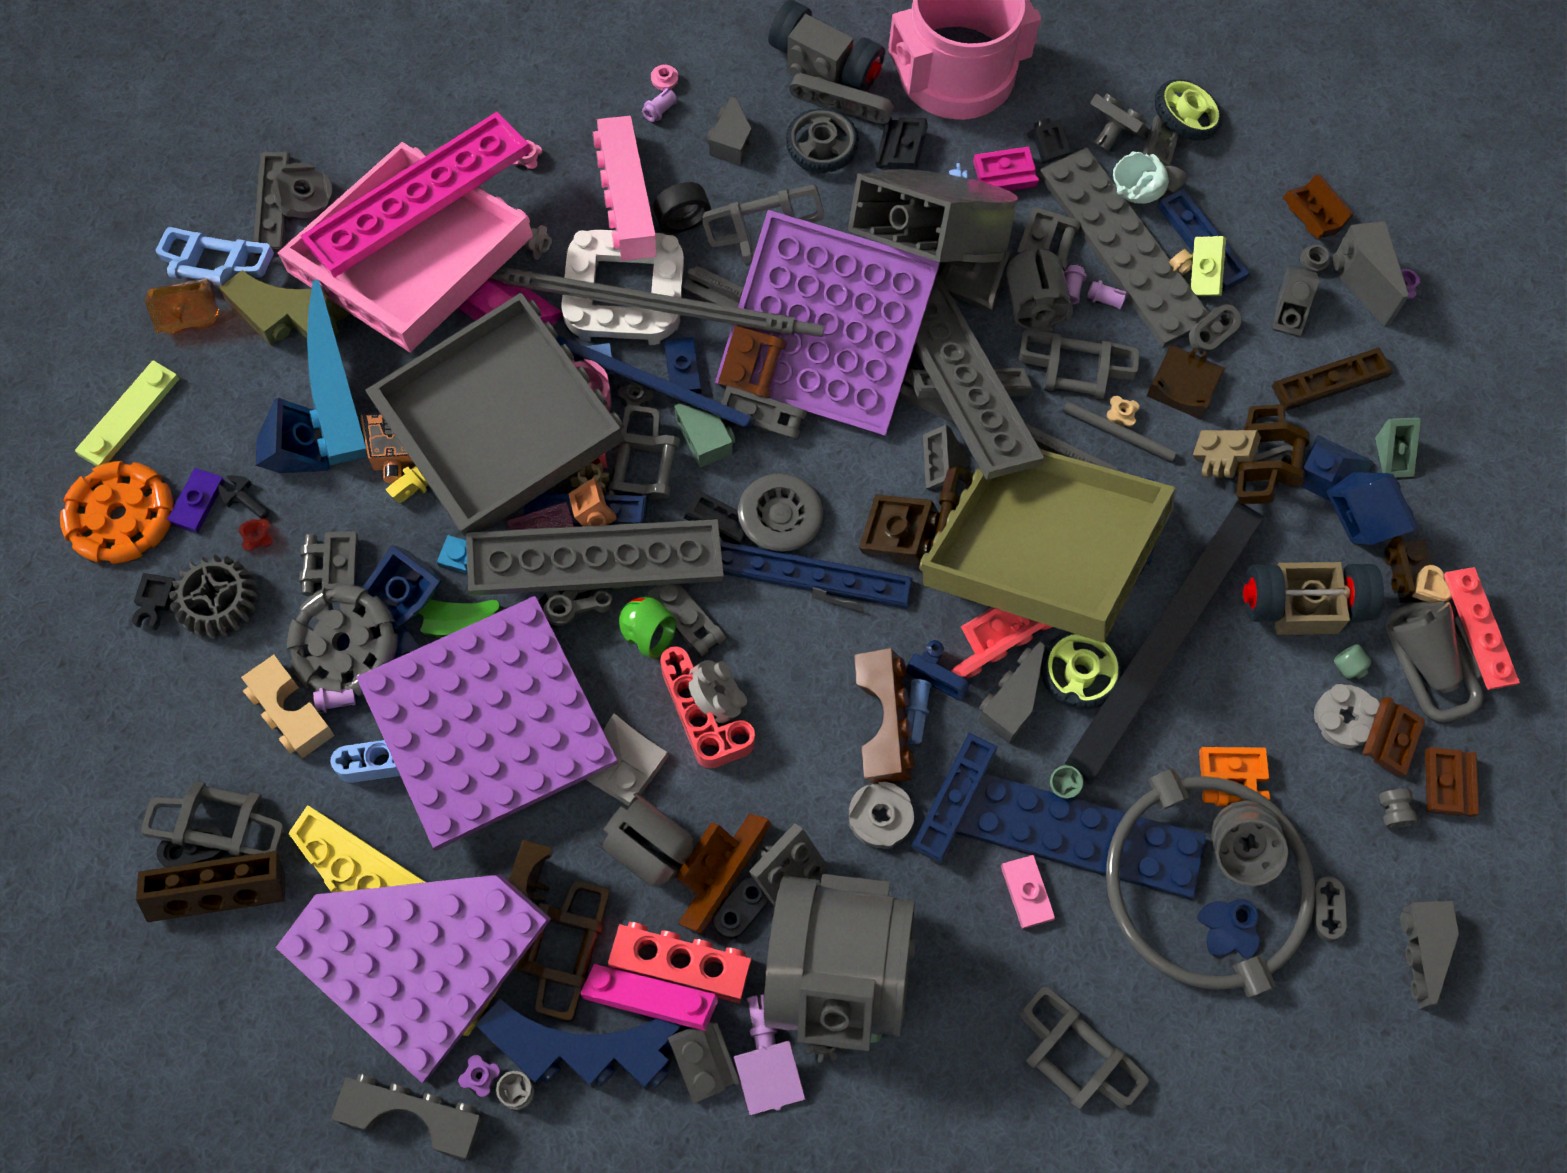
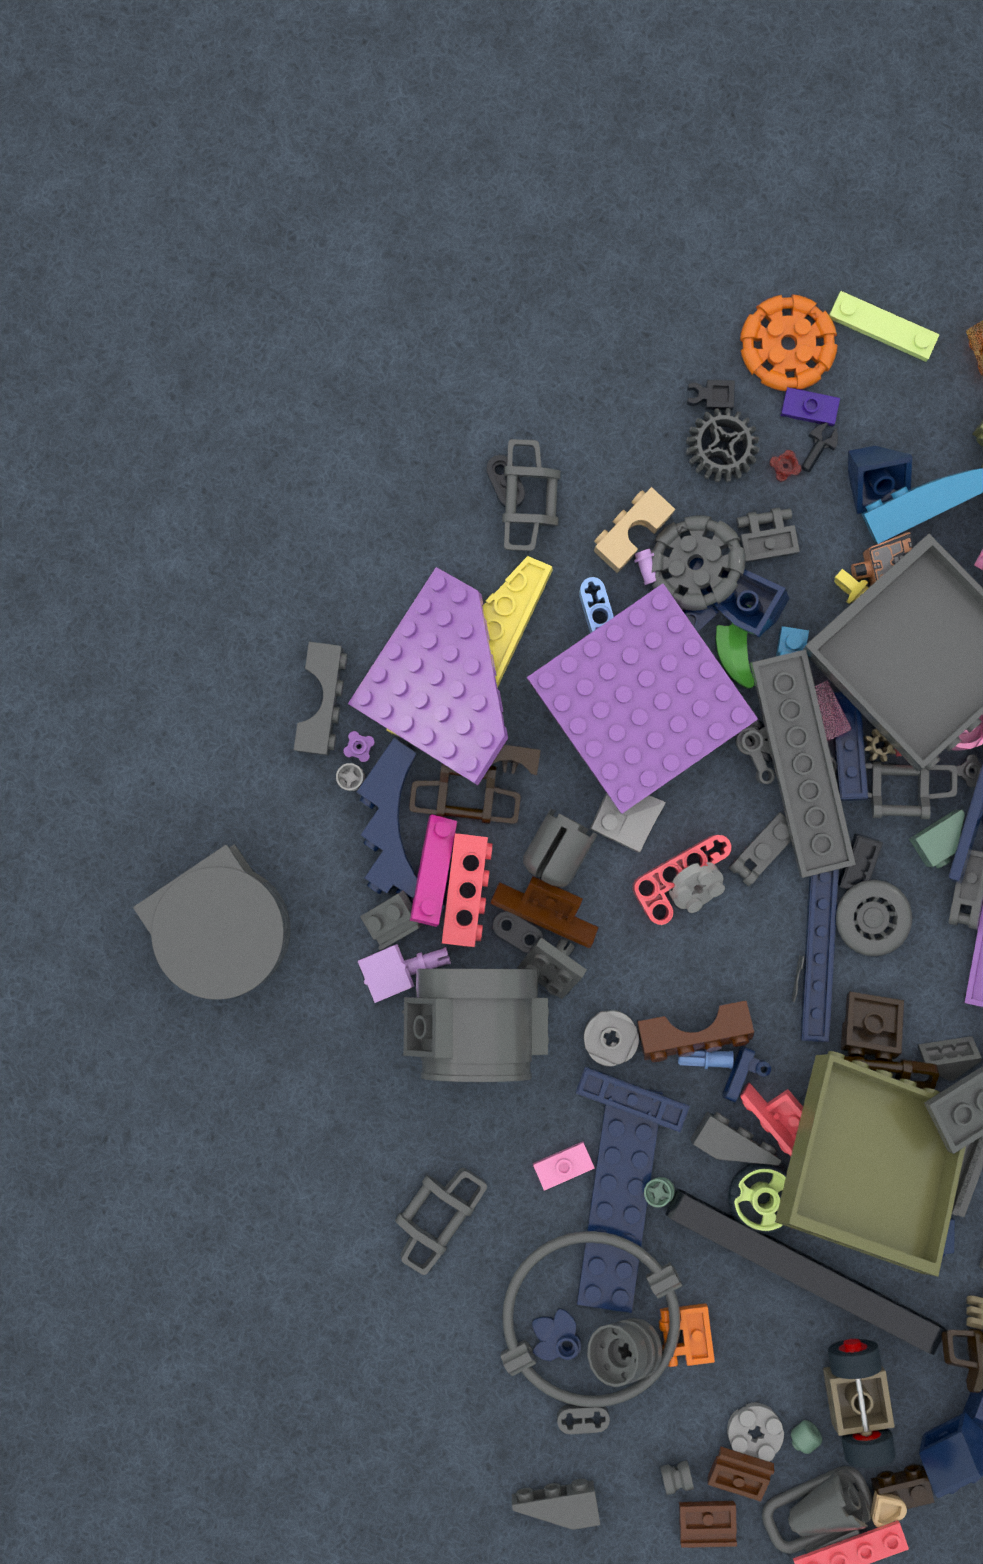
camera: 90 degrees right, 20 degrees up
(211, 886) = (474, 506): dark brown brick -> none
(590, 506) = (850, 751): nougat bracket -> none
(639, 622) = (749, 813): bright green helmet -> none

